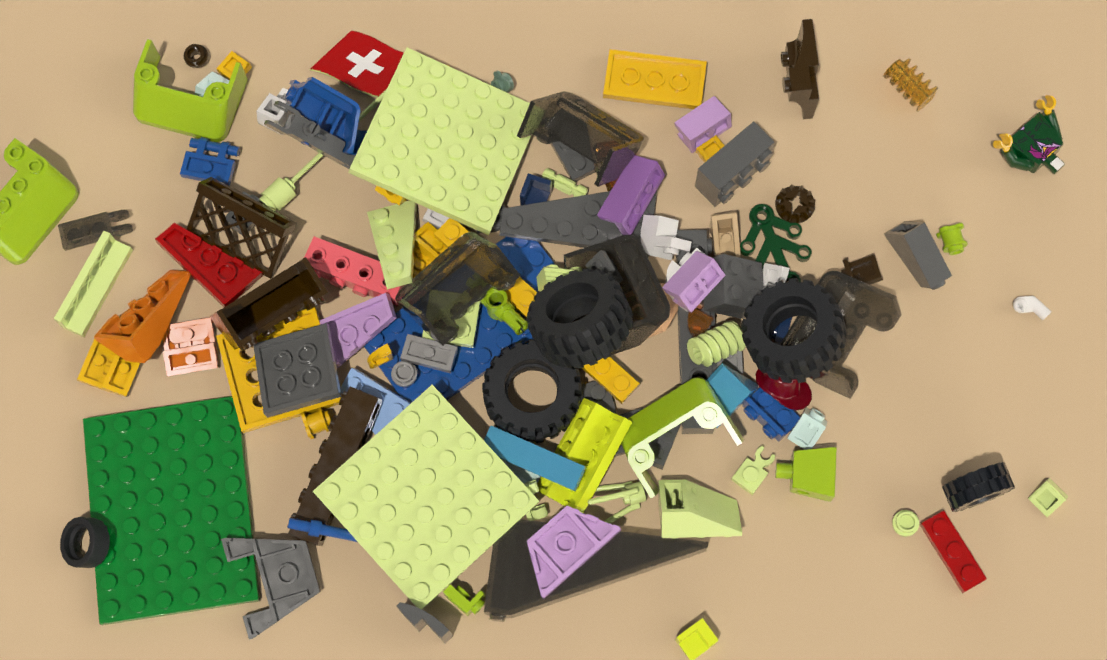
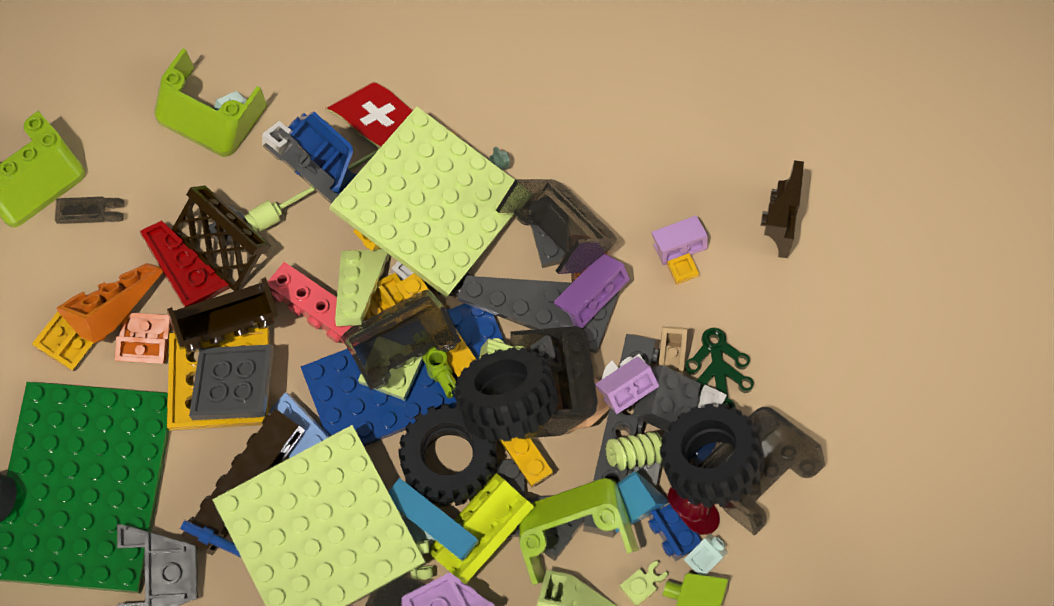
camera: 15 degrees right, 5 degrees down
(93, 284) = (71, 262): yellowish green fence -> none
(195, 49) = (222, 69): dark brown plate -> none
(202, 166) = (200, 173): blue plate -> none
(228, 64) = (249, 88): yellow tile -> none
(316, 422) = (237, 436): yellow brick -> none
(358, 325) = (301, 354): lavender wing -> none
(380, 356) = (314, 388): yellow tile -> none
(404, 374) = (332, 409): light grey plate -> none
(429, 353) = (360, 396): light grey plate -> none
(535, 190) = (503, 265): dark blue panel -> none
(564, 184) = (532, 266): yellowish green axle -> none
(629, 492) = (517, 576): yellowish green plant -> none
(654, 79) = (644, 188): yellow plate -> none
(659, 237) = (609, 335): white brick -> none
(698, 322) = (624, 425): clear orange tile -> none
(734, 165) = (698, 284): dark grey brick -> none
(784, 207) = (752, 346): dark brown gear -> none
(864, 269) = (800, 414): dark brown bracket -> none
(910, 83) = (889, 245): clear yellow piece -> none
(919, 253) = (858, 411): dark grey slope -> none
(952, 239) = (895, 404): lime brick -> none
(1029, 304) = (958, 486): white arm -> none
(1035, 142) = (999, 329): dark green torso -> none

